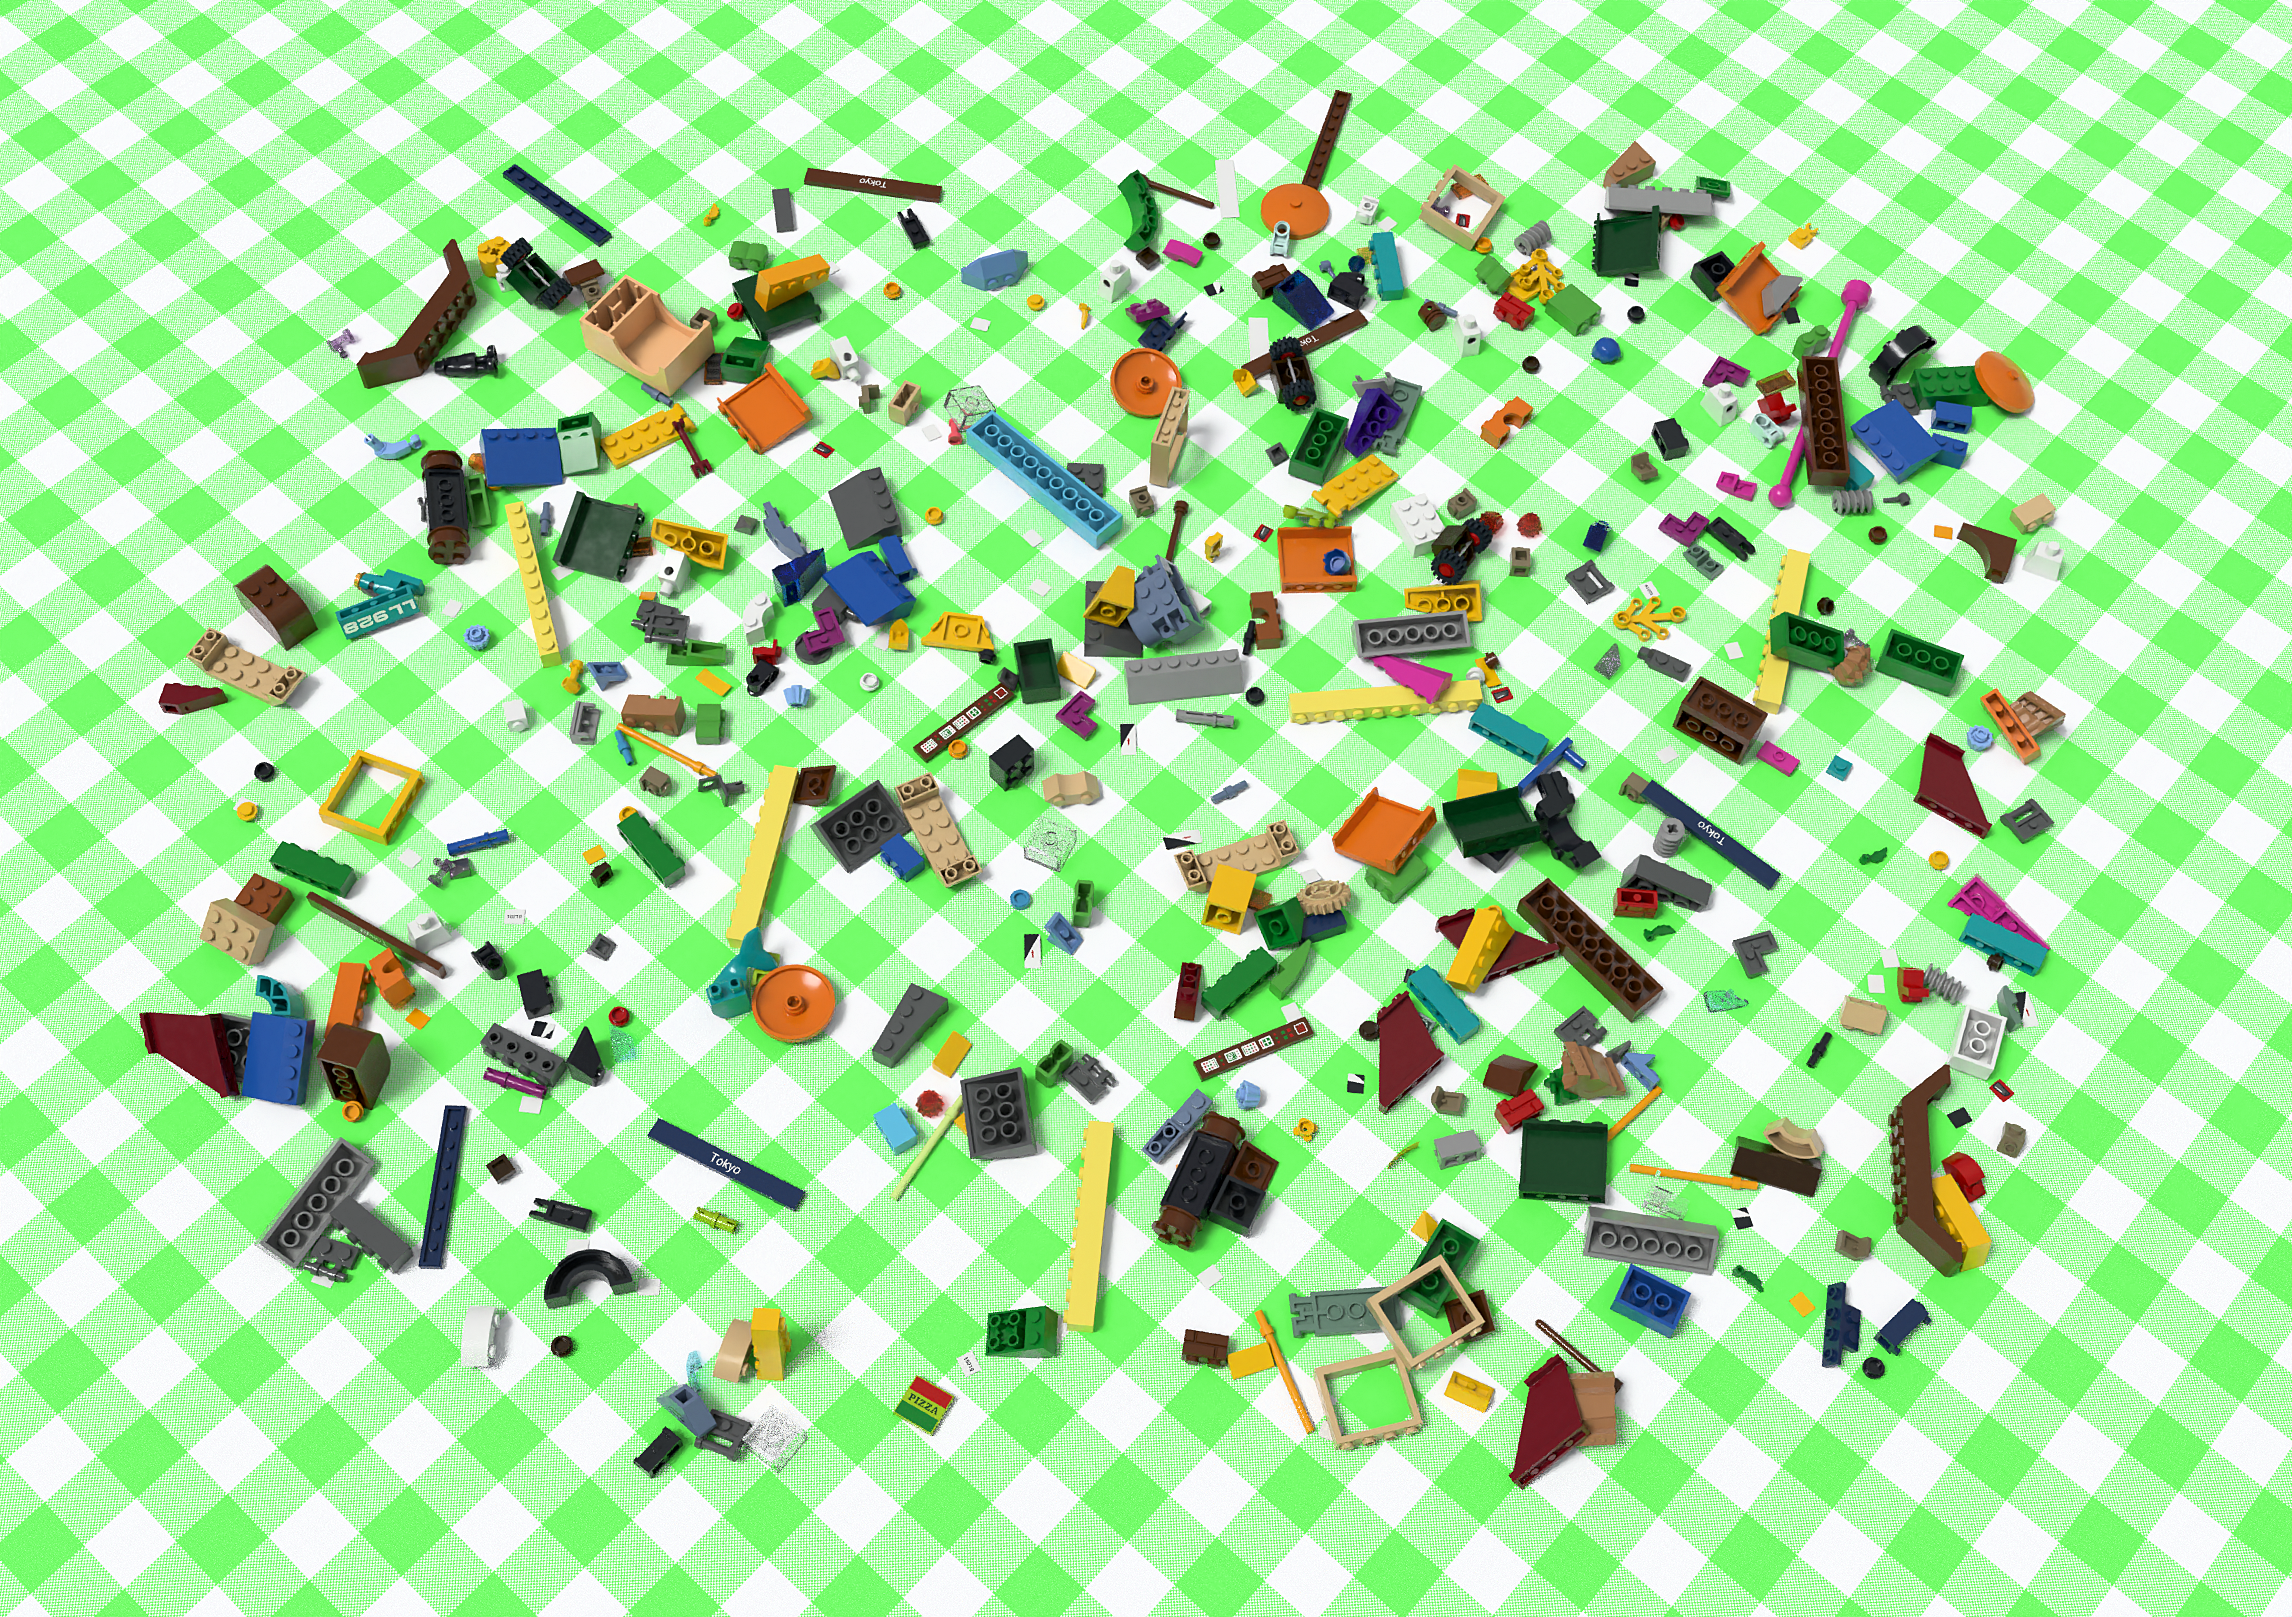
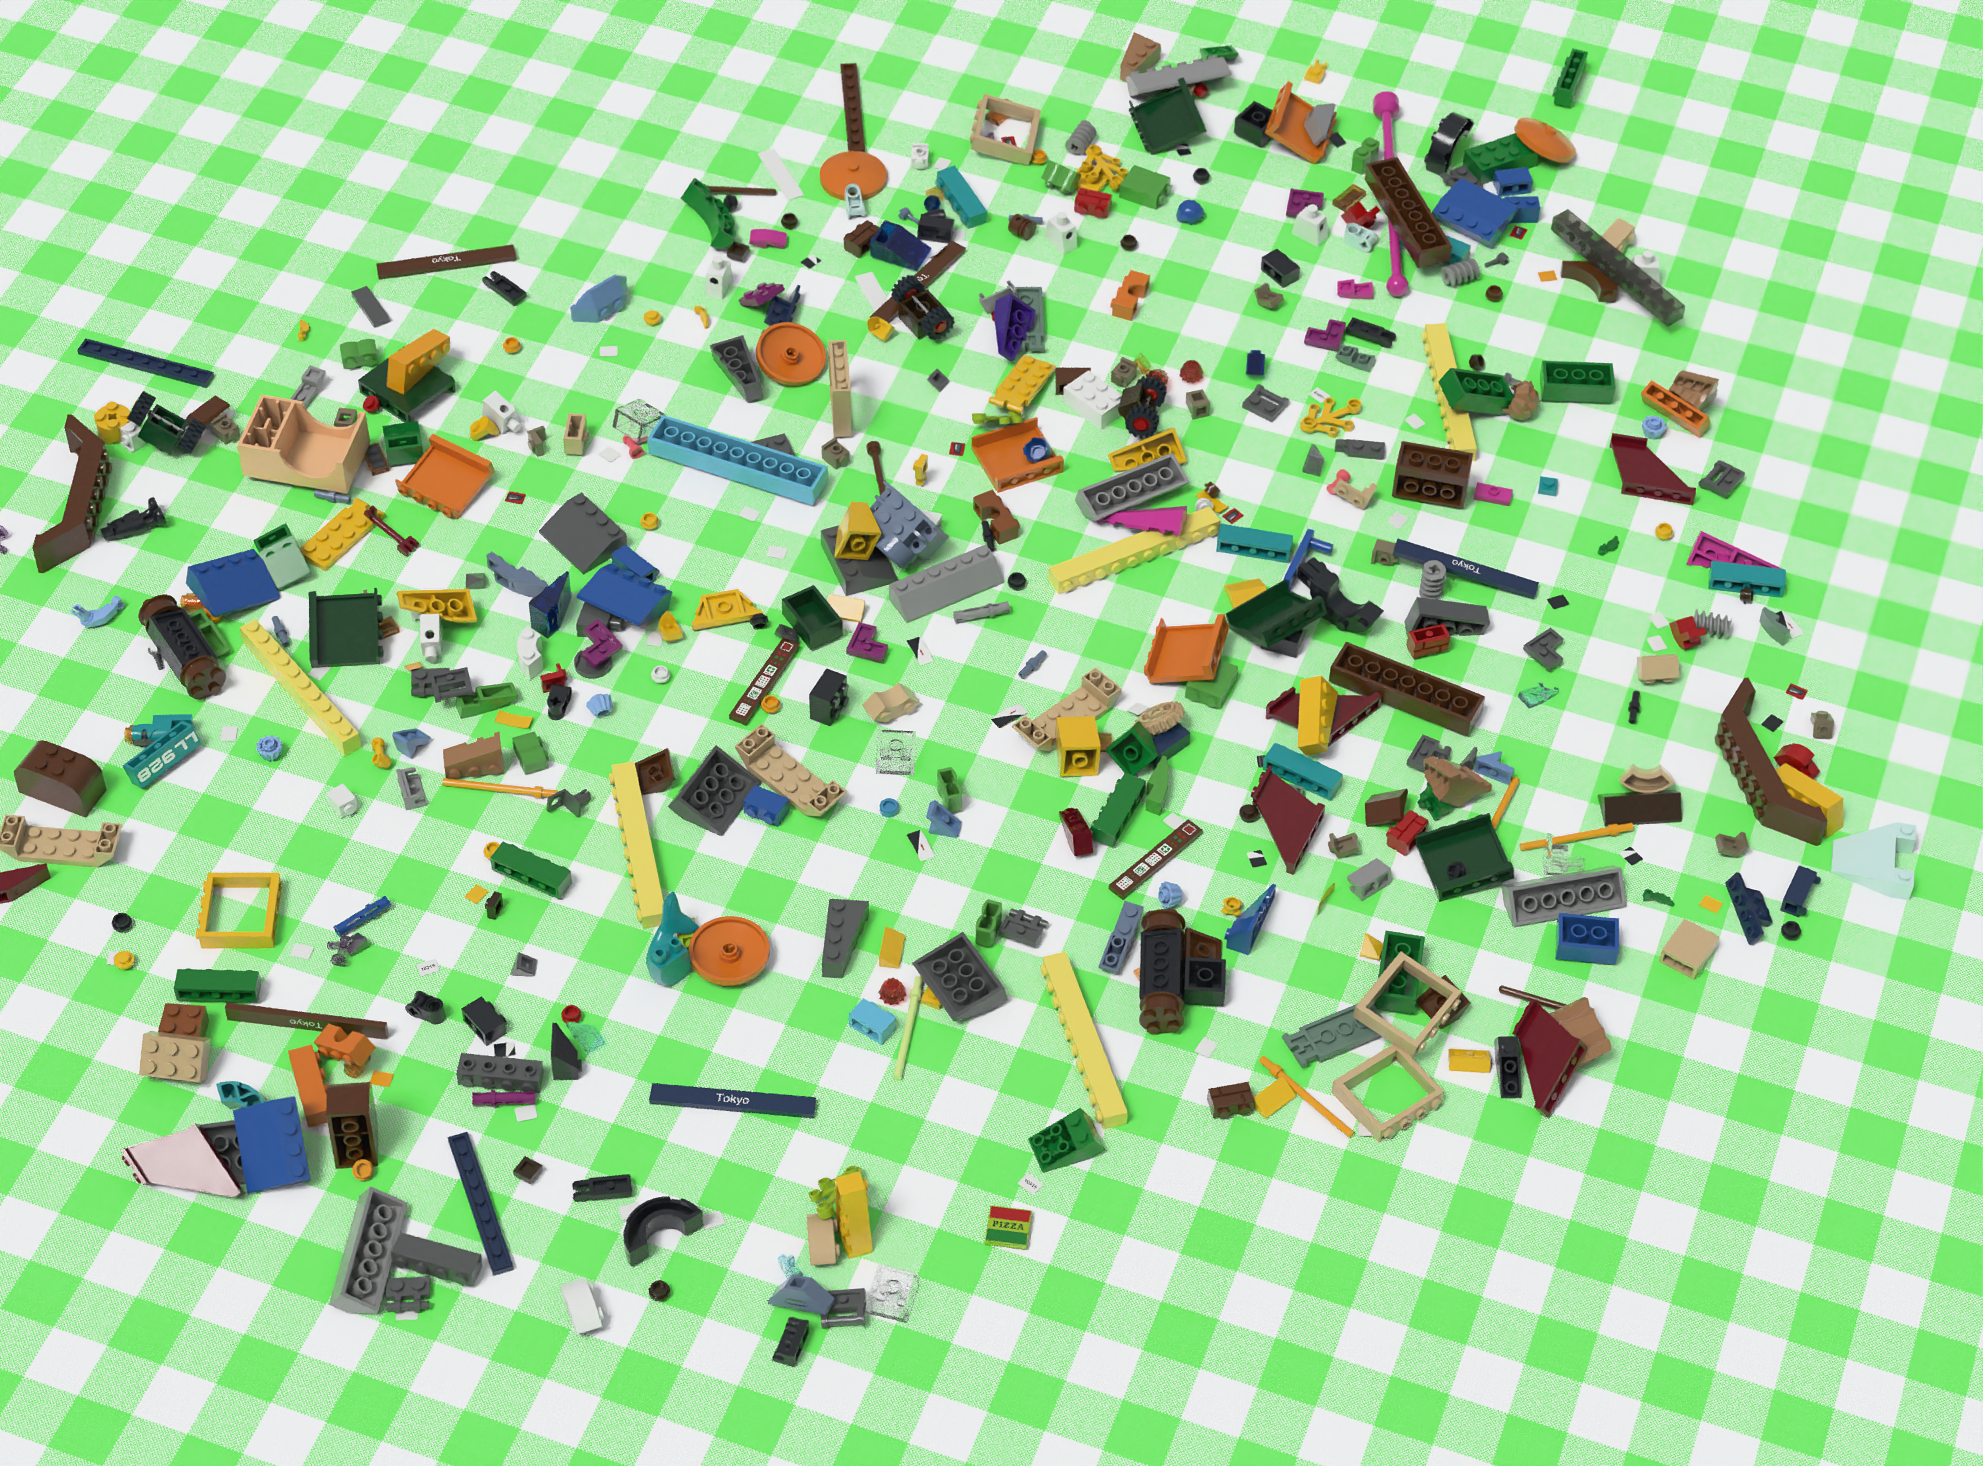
camera: 20 degrees left, 10 degrees down
(428, 932) = (357, 1000): white torso -> none
(624, 748) = (459, 797): dark azure bar -> none
(655, 782) = (505, 815): dark tan brick -> none
(683, 280) = (310, 385): none -> light grey slope
(715, 1220) = (746, 1146): lime pin -> none
(798, 1291) = (825, 1208): none -> lime plant
(1091, 376) = (737, 365): none -> dark grey wedge
(1163, 204) = (730, 202): none -> black plate
(1311, 1157) = (1247, 926): none -> blue wedge
(1318, 446) = (974, 361): green brick -> none
(1402, 490) = (1066, 375): none -> reddish brown slope
(1482, 500) = (1142, 363): none -> tile
(1504, 1417) = (1508, 1066): none -> black slope
(1548, 1174) = (1456, 870): none -> black plate
(1630, 689) = (1341, 474): none -> coral piece
(1634, 719) = (1353, 495): none -> tan bracket
(1659, 930) = (1458, 657): green piece -> none
(1754, 1350) = (1689, 949): none -> tan brick
(1793, 901) = (1558, 601): none -> black sticker
(1933, 474) = (1518, 232): none -> sticker
(1976, 1041) = (1760, 657): white brick -> none
(1994, 1314) = (1870, 859): none -> light aqua wedge
(2017, 550) = (1618, 268): none -> clear smoke brick
(2062, 320) = (1570, 77): none -> green brick

